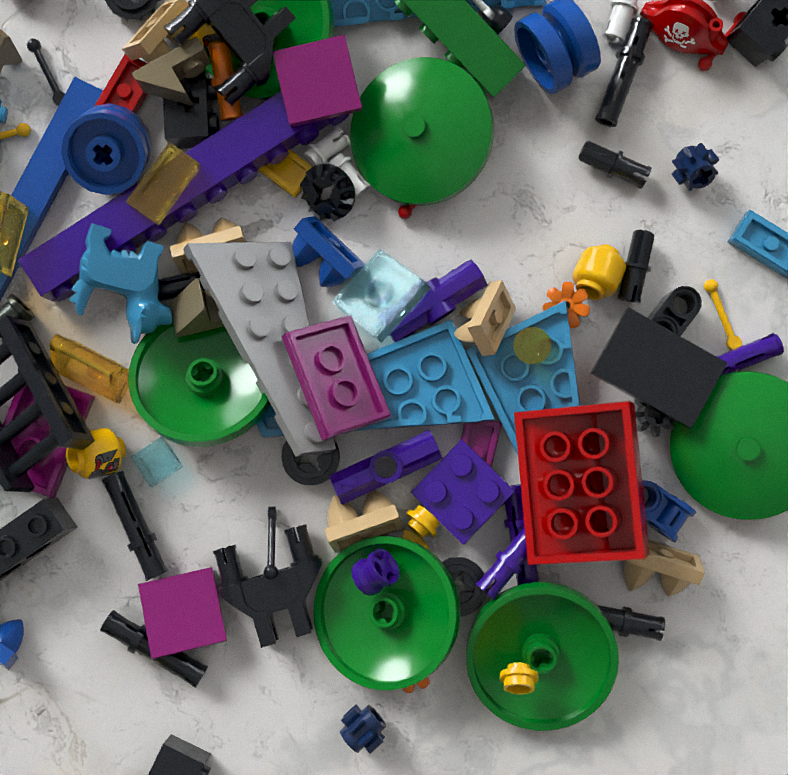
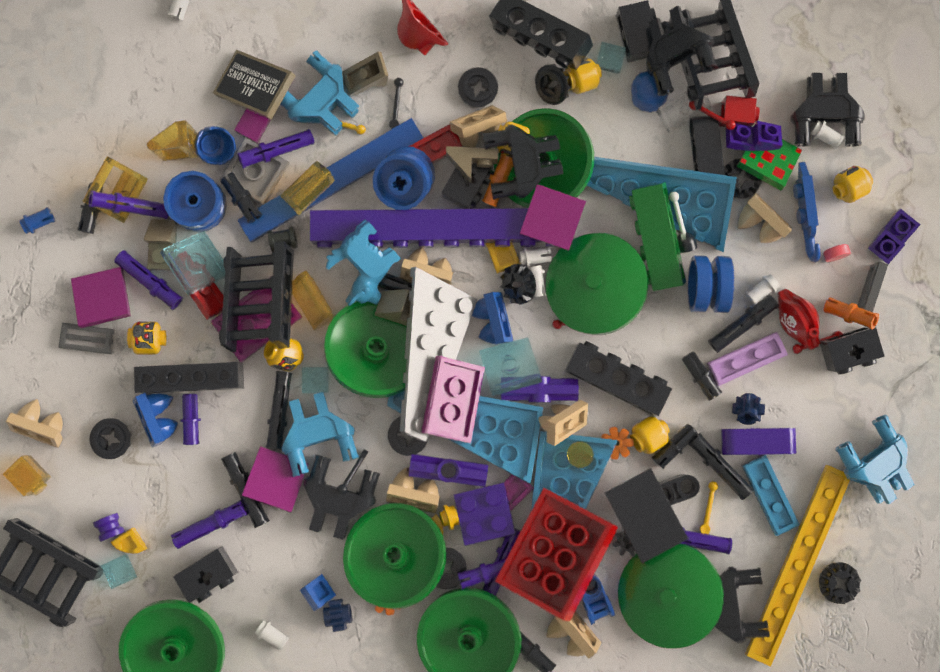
camera: 30 degrees right, 0 degrees up
(33, 606) = (190, 419): none -> dark purple axle
(144, 706) = (218, 520): none -> dark purple pin
(163, 183) = (424, 220): clear yellow tile -> none
(193, 522) = (316, 430): none -> dark azure connector
(321, 716) = (318, 592): none -> blue plate
(375, 572) = (403, 528): dark purple wheel -> none
(519, 678) = (447, 644): yellow plate -> none
(572, 211) = (657, 390): none -> black brick
(654, 111) = (747, 359): none -> lavender tile
(706, 256) = (721, 466): none -> black pin
(731, 197) = (758, 441): none -> dark purple beam

